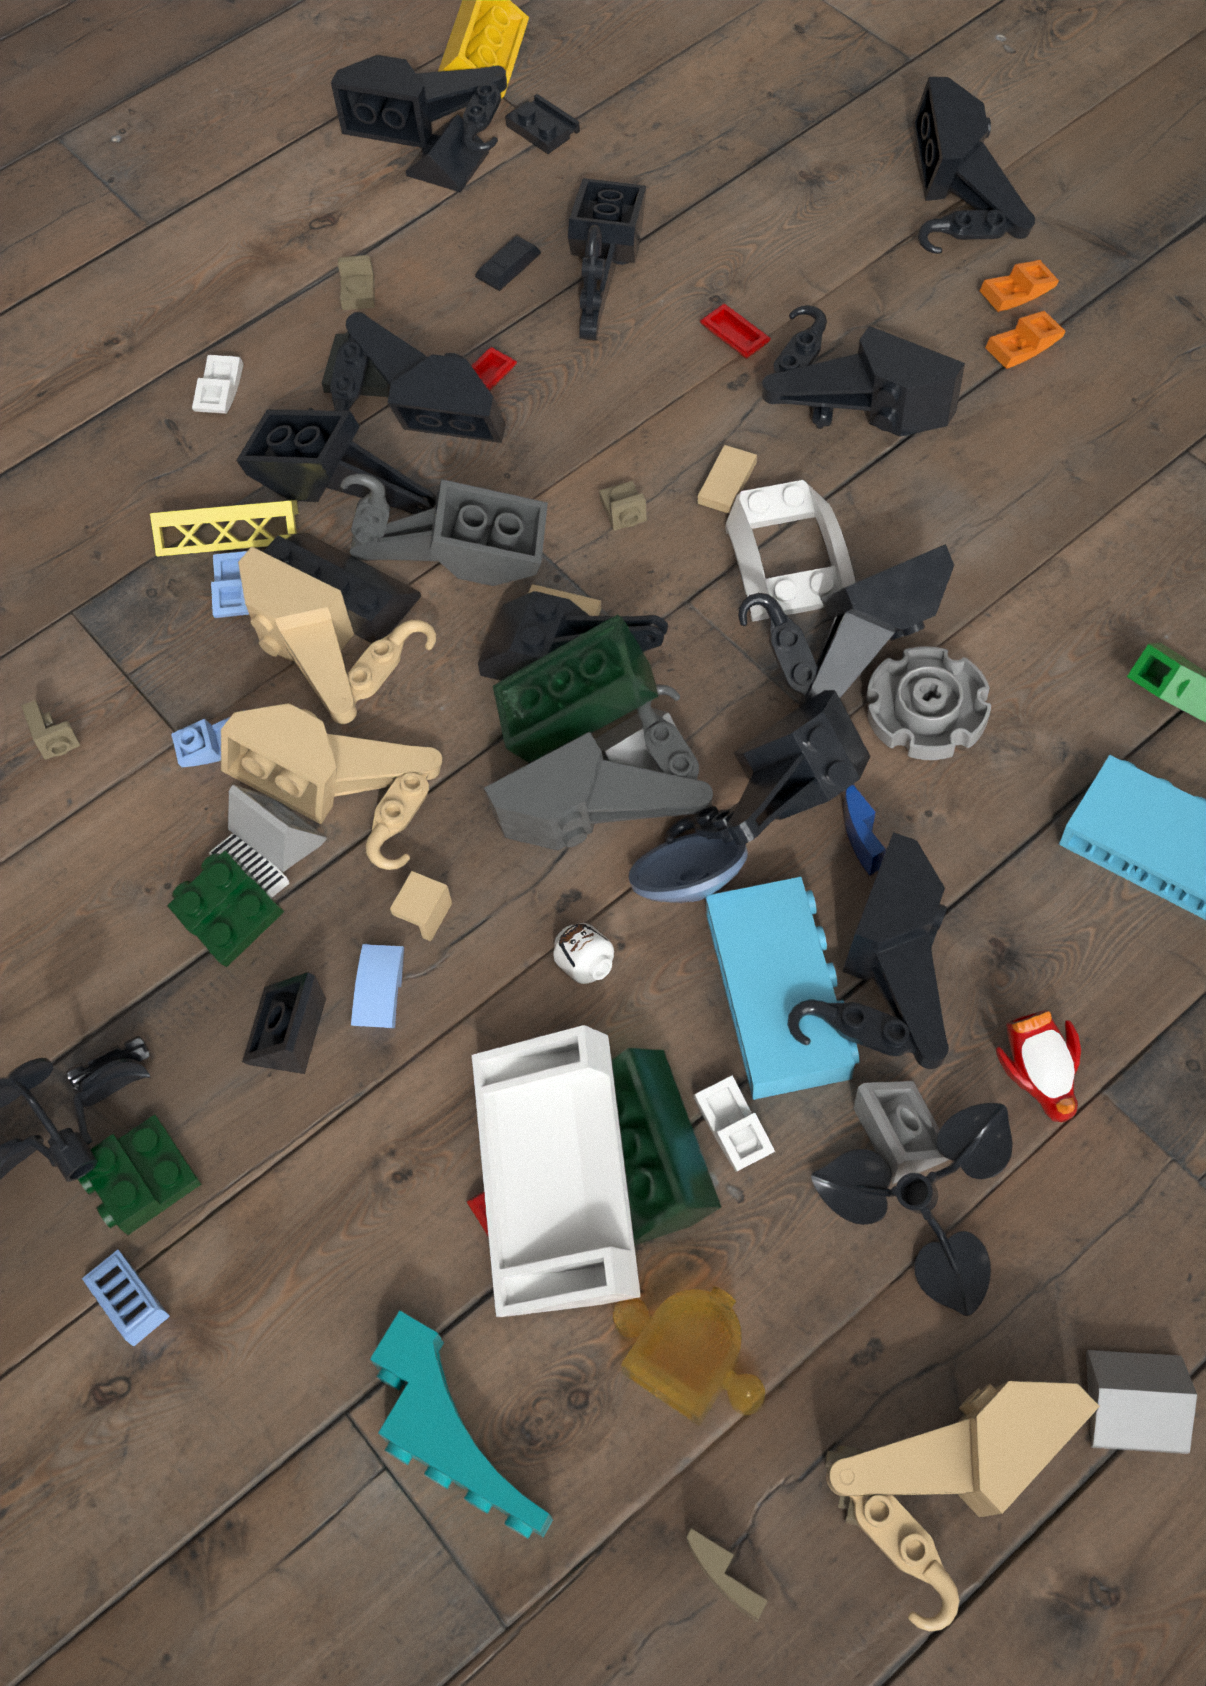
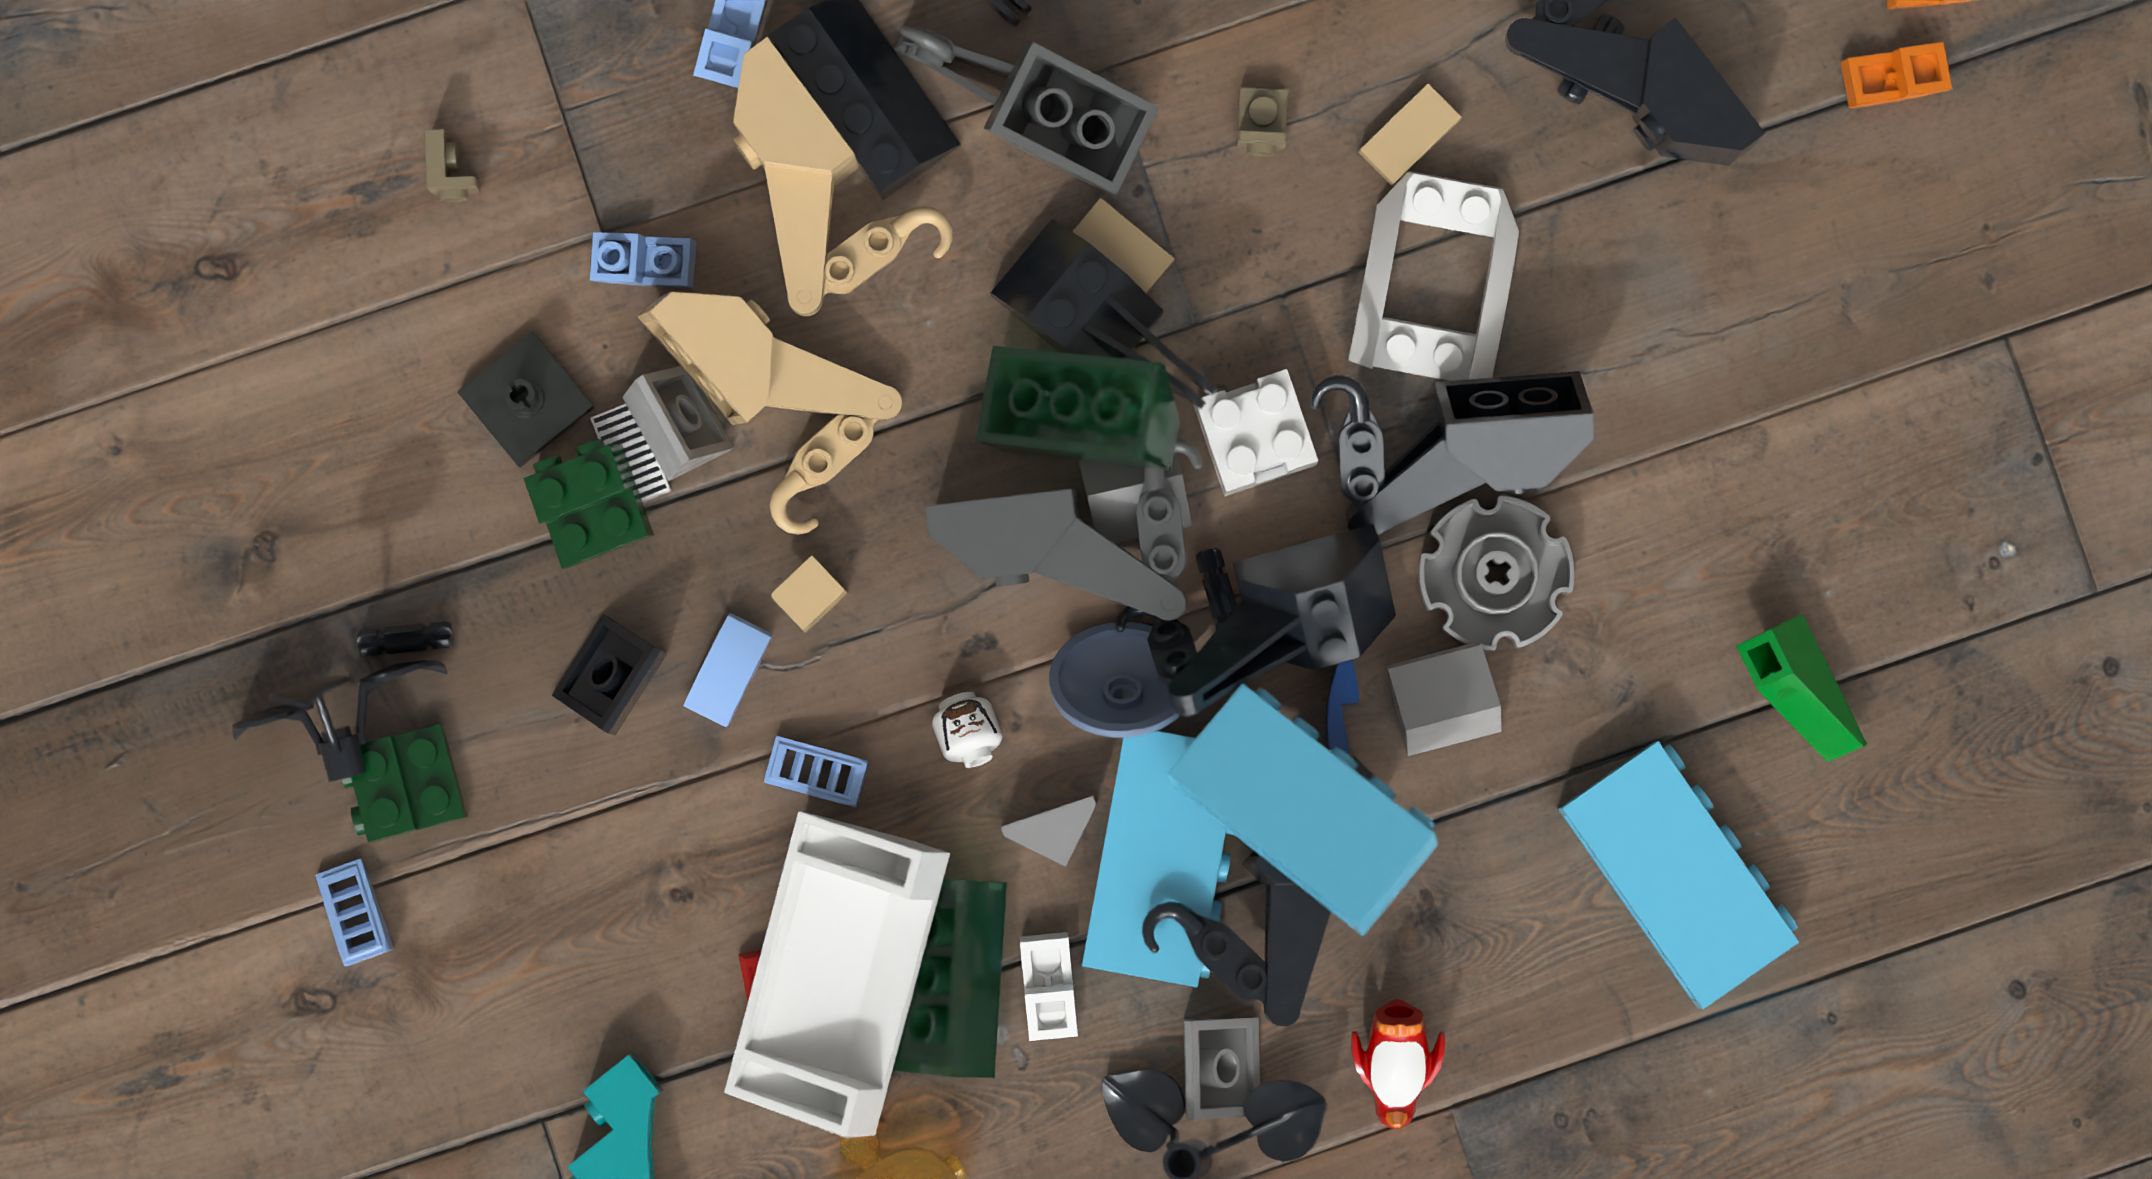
camera: 20 degrees right, 25 degrees up
(154, 861) = (526, 399): none -> pearl dark grey tile
(489, 1017) = (855, 780): none -> light blue slope
(681, 1002) = (1053, 831): none -> light grey slope
(711, 678) = (1256, 433): none -> white piece
(728, 787) = (1216, 584): none -> black axle
(876, 873) = (1304, 807): none -> medium azure brick
(939, 793) = (1445, 698): none -> light grey slope

